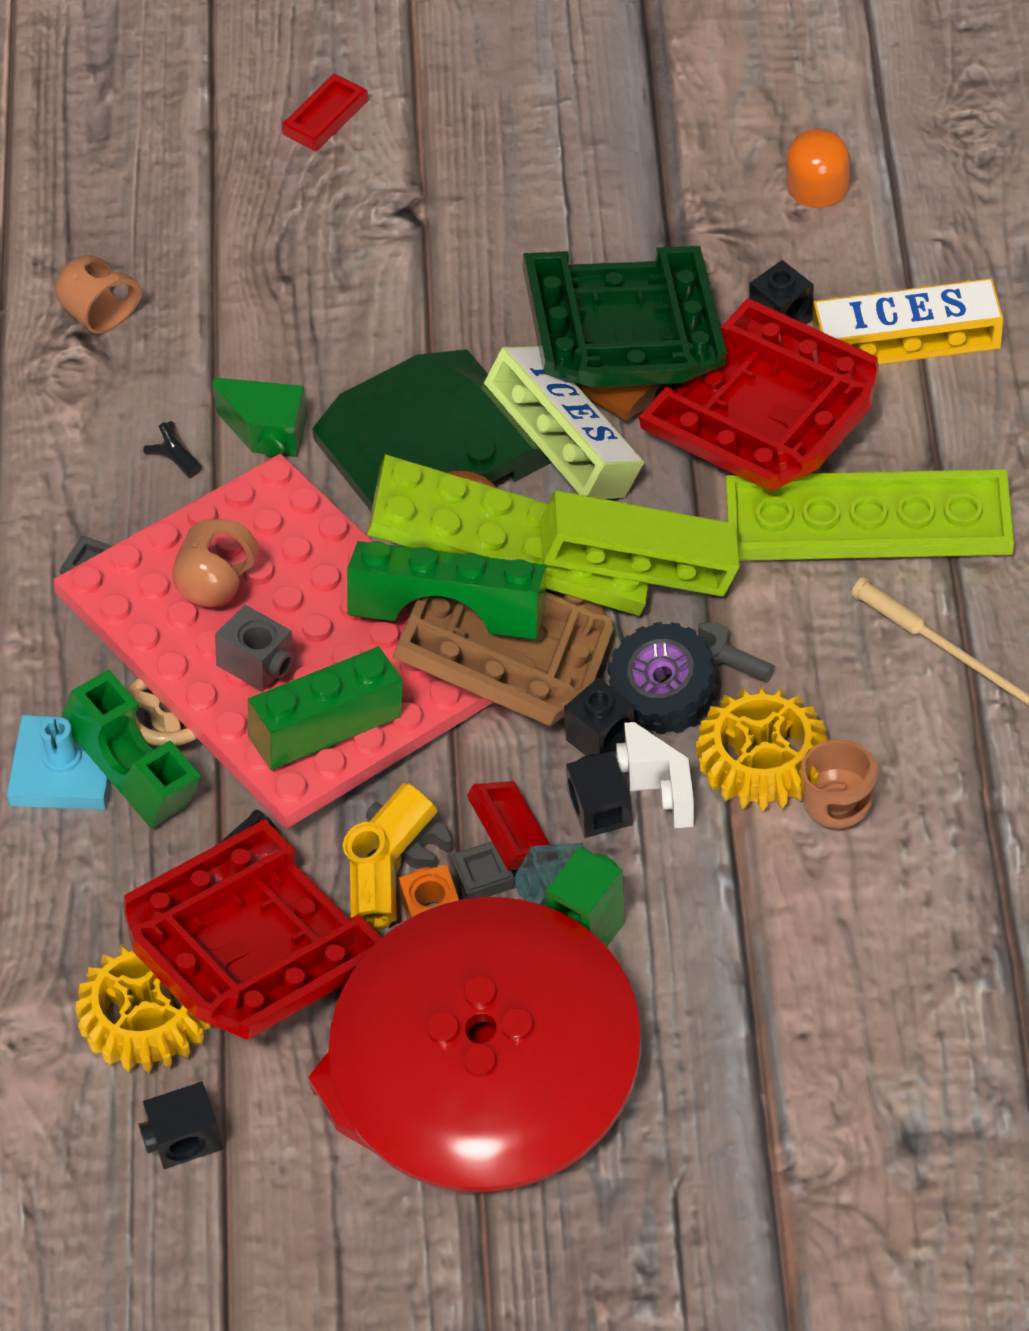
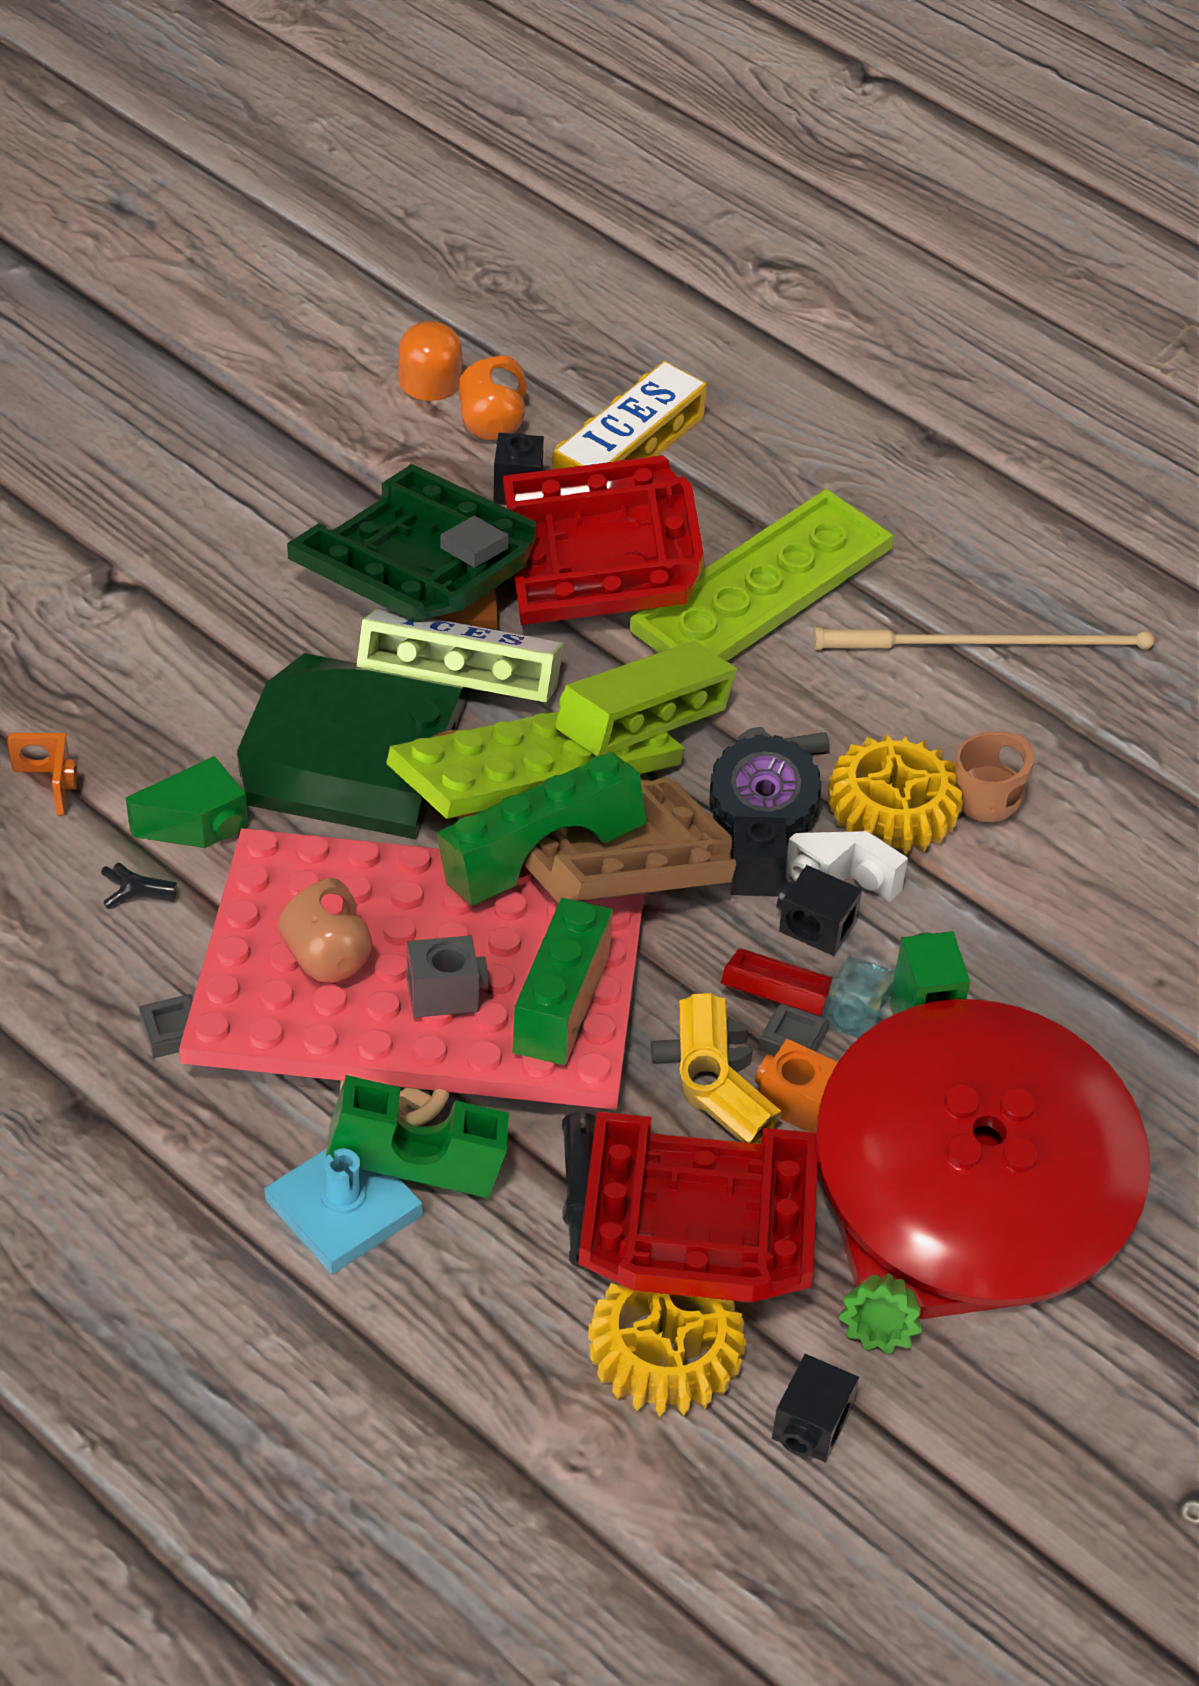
camera: 50 degrees left, 5 degrees down
(210, 329) = (58, 762): none -> orange bracket
(297, 1098) = (882, 1313): none -> bright green piece
(649, 337) = (474, 541): none -> dark grey tile
(814, 239) = (489, 406): none -> orange helmet

